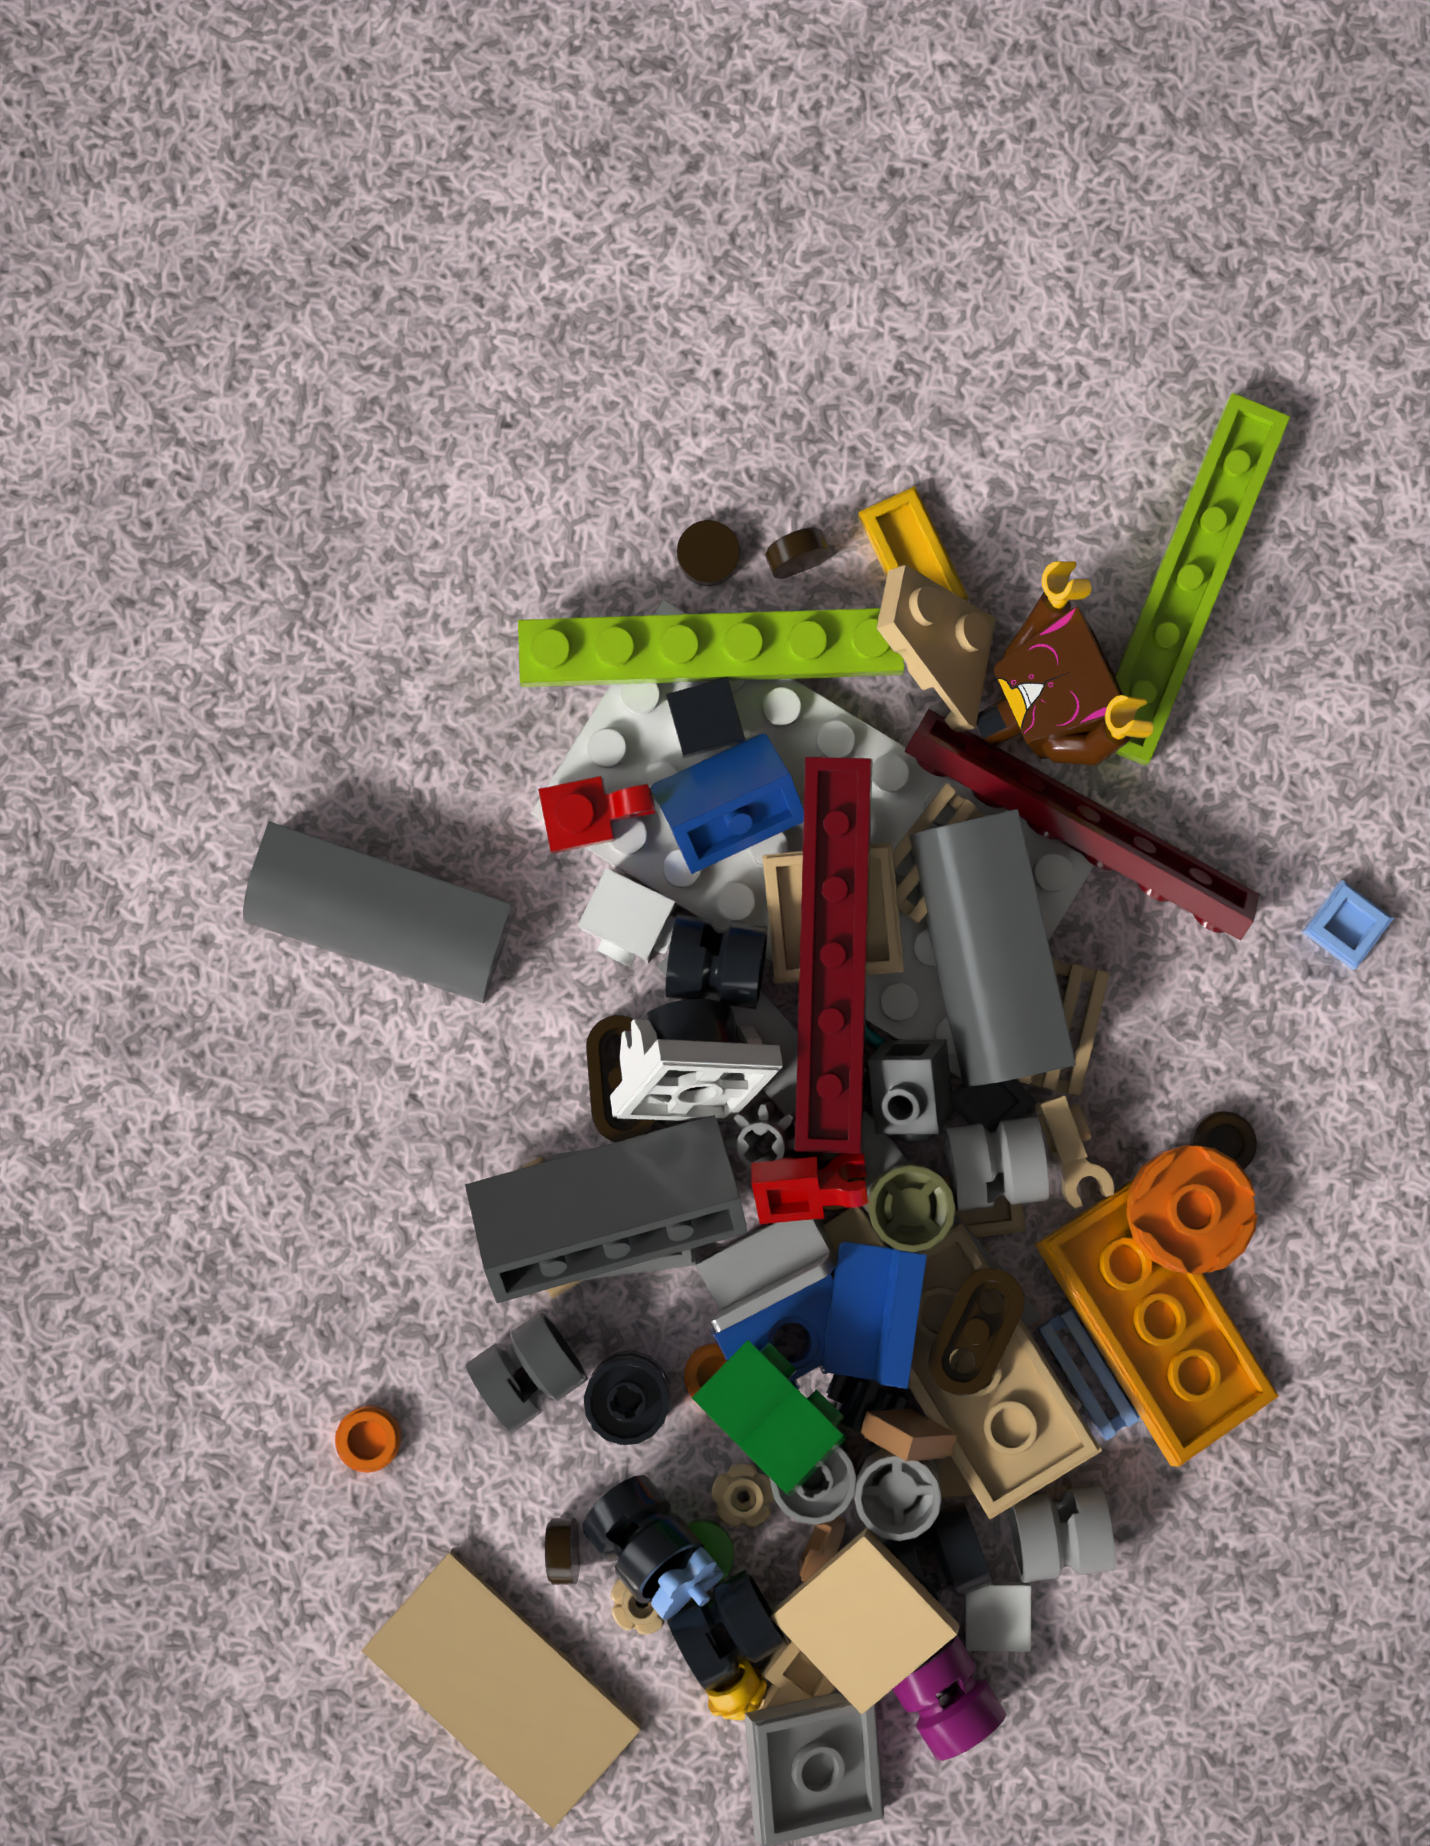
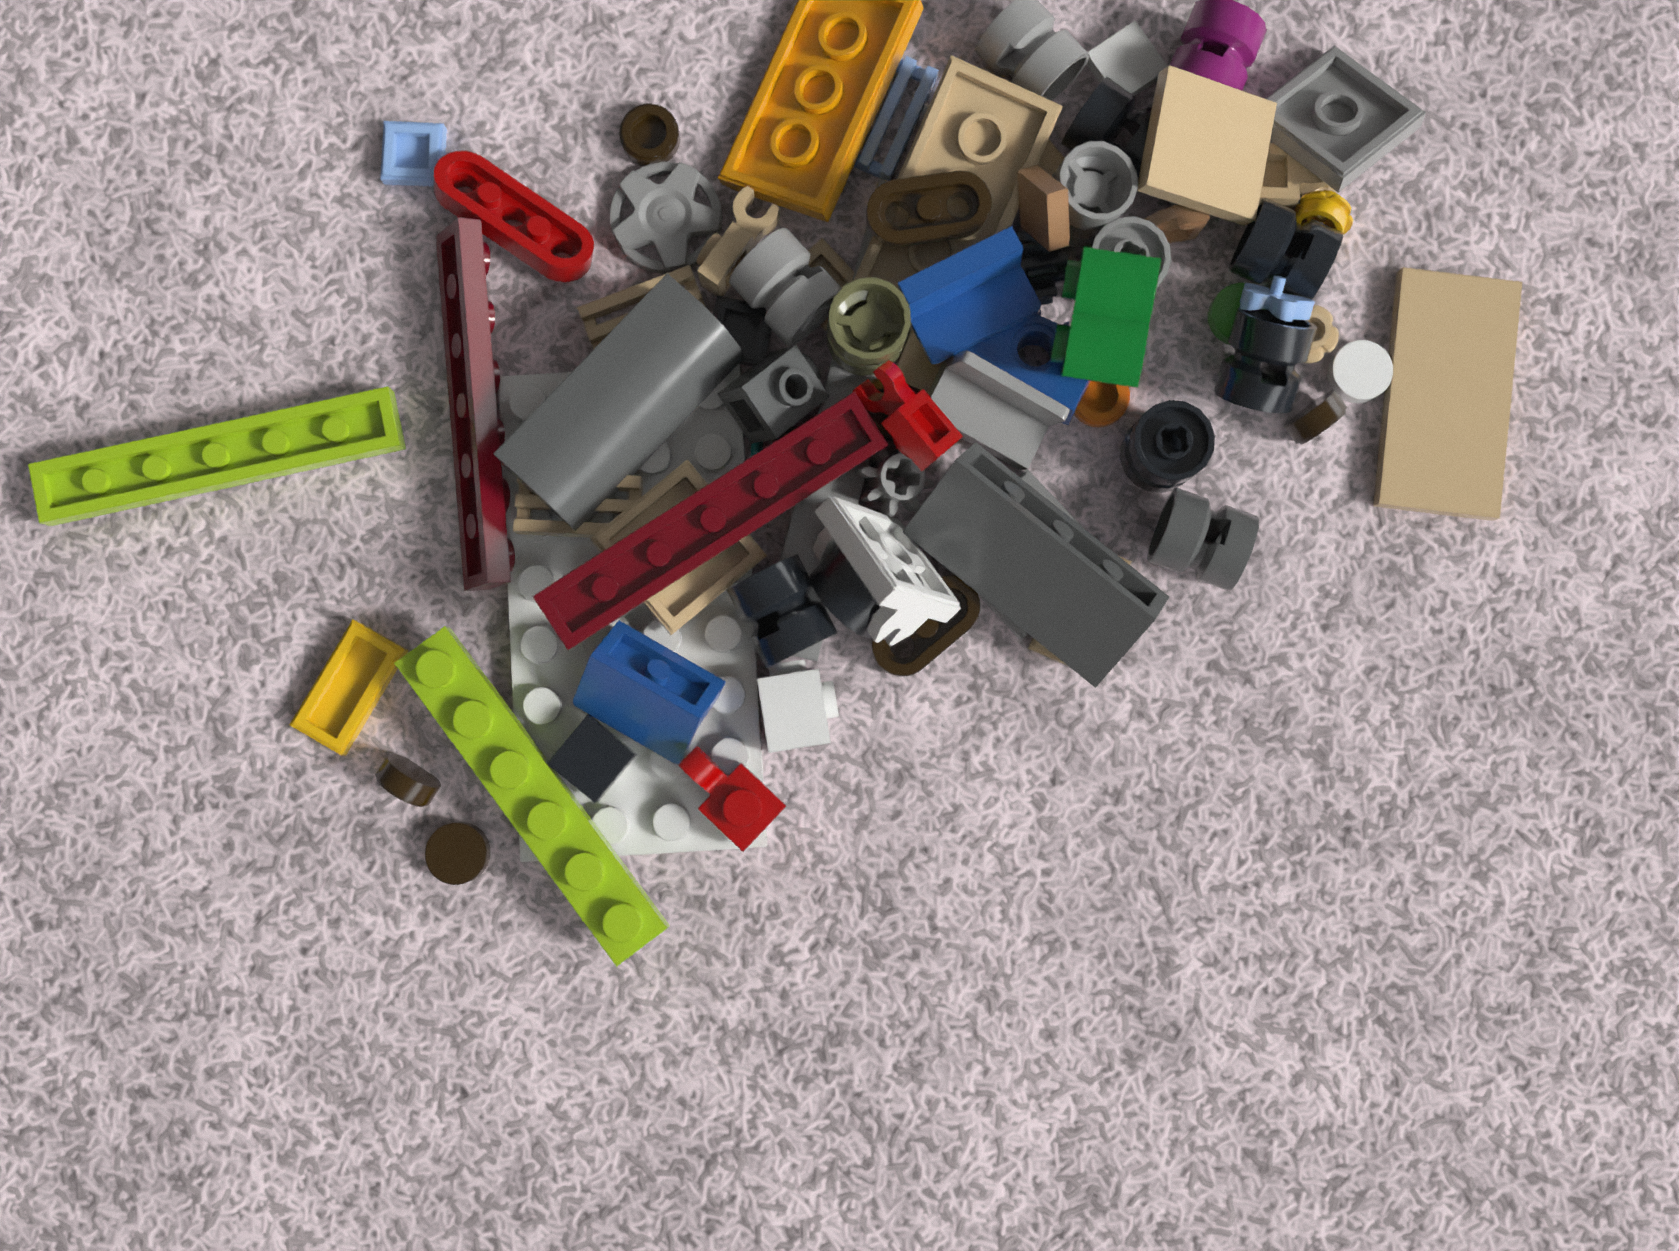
camera: 125 degrees left, 0 degrees up
(368, 1438) = (1338, 627): orange tile -> none
(376, 912) = (931, 914): dark grey brick -> none
(576, 1624) = (1360, 371): none -> white tile
(725, 1491) = (1191, 315): tan plate -> none
(940, 640) = (399, 616): tan wing -> none
(1061, 683) = (369, 492): reddish brown torso -> none
(1139, 1104) = (664, 215): none -> light grey wheel
(1192, 1209) = (717, 119): orange tile -> none
(1253, 974) = (503, 198): none -> red plate

